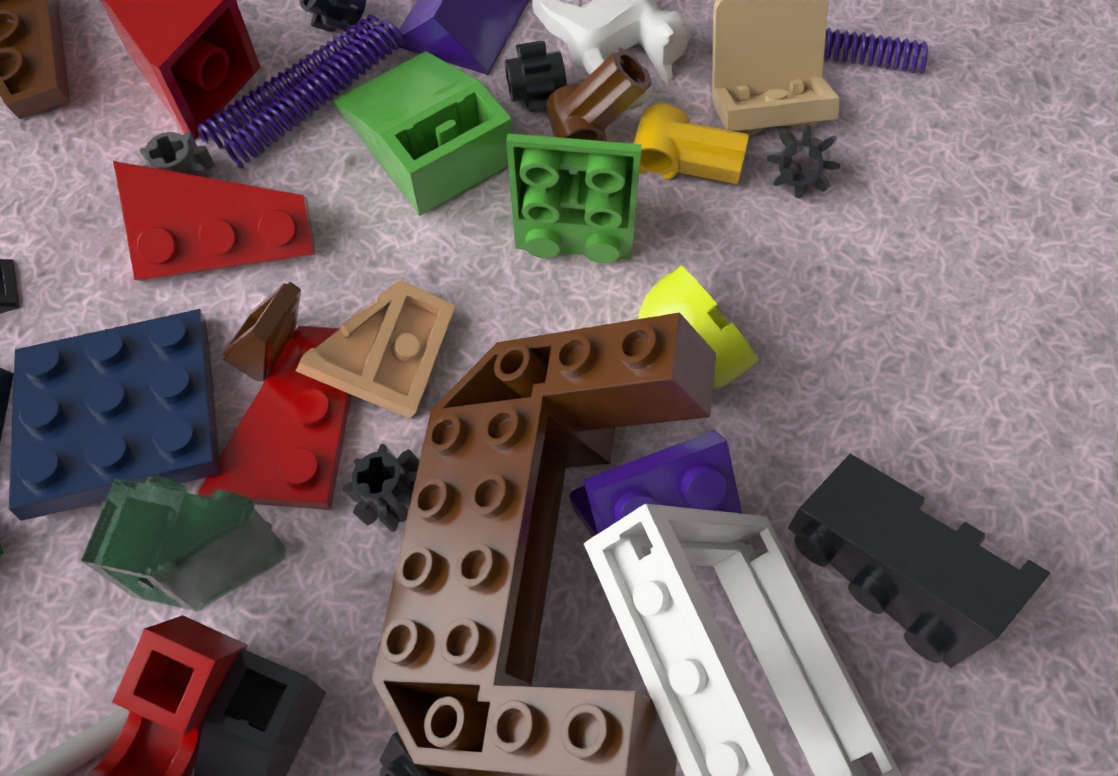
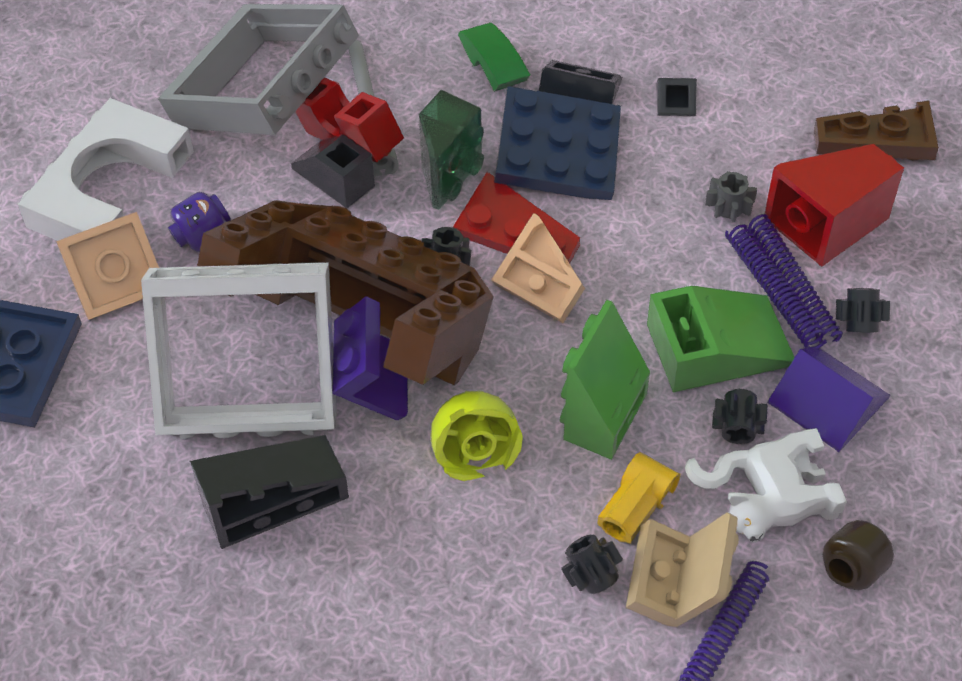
camera: 110 degrees right, 10 degrees down
(206, 224) = (671, 204): red wing -> none
(265, 333) = (568, 209): reddish brown slope -> none
(590, 107) = (689, 435): reddish brown piece -> none

